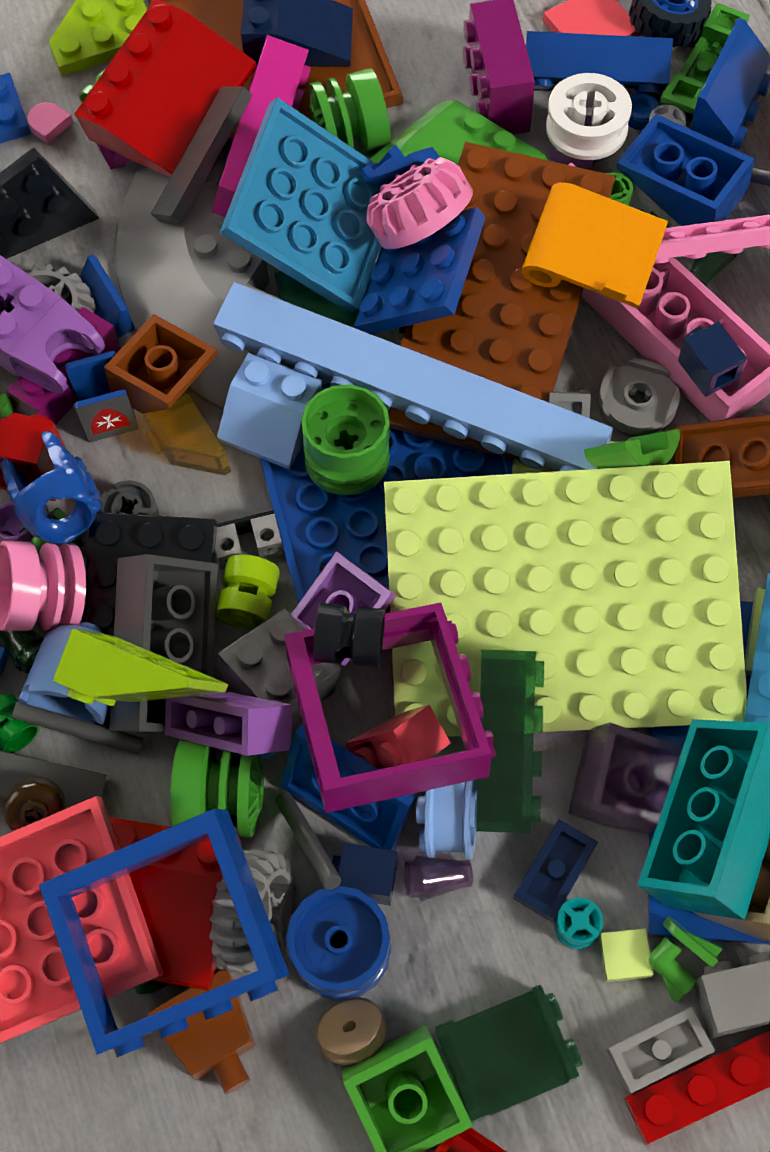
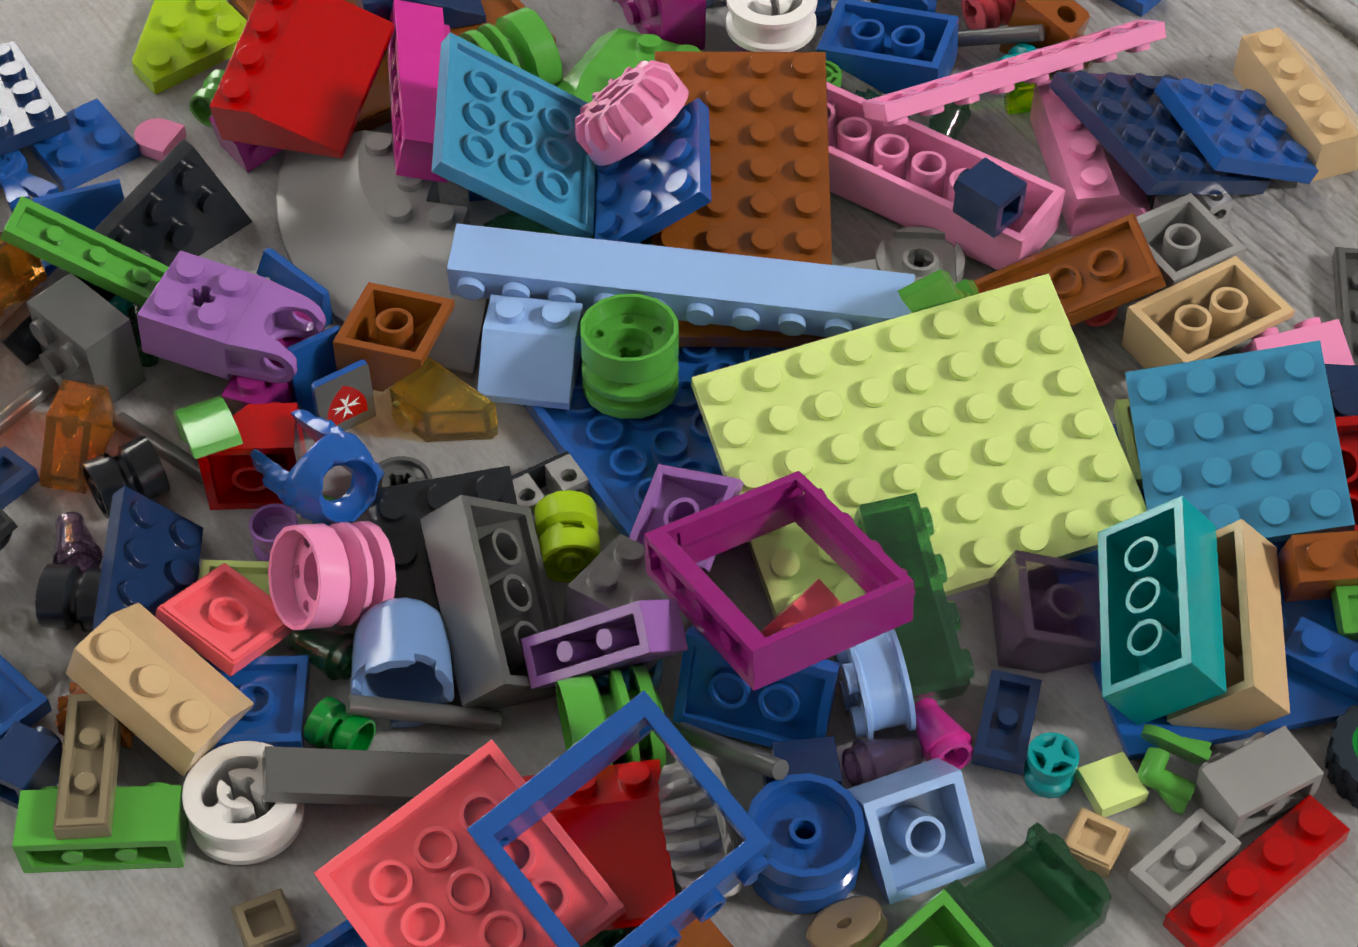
camera: 20 degrees left, 15 degrees down
(35, 792) = (395, 781): dark brown head -> none
(114, 669) = (493, 607): lime slope -> none
(201, 154) = (364, 122): dark grey tile -> none
(349, 635) = (721, 508): black wheel -> none
(395, 163) = (585, 84): blue slope -> none
(440, 952) = (918, 829): none -> light blue slope
(493, 869) = (941, 735): none -> dark pink cone
(591, 1005) = (1096, 841): none -> tan tile
(594, 244) = (829, 113): light orange door -> none

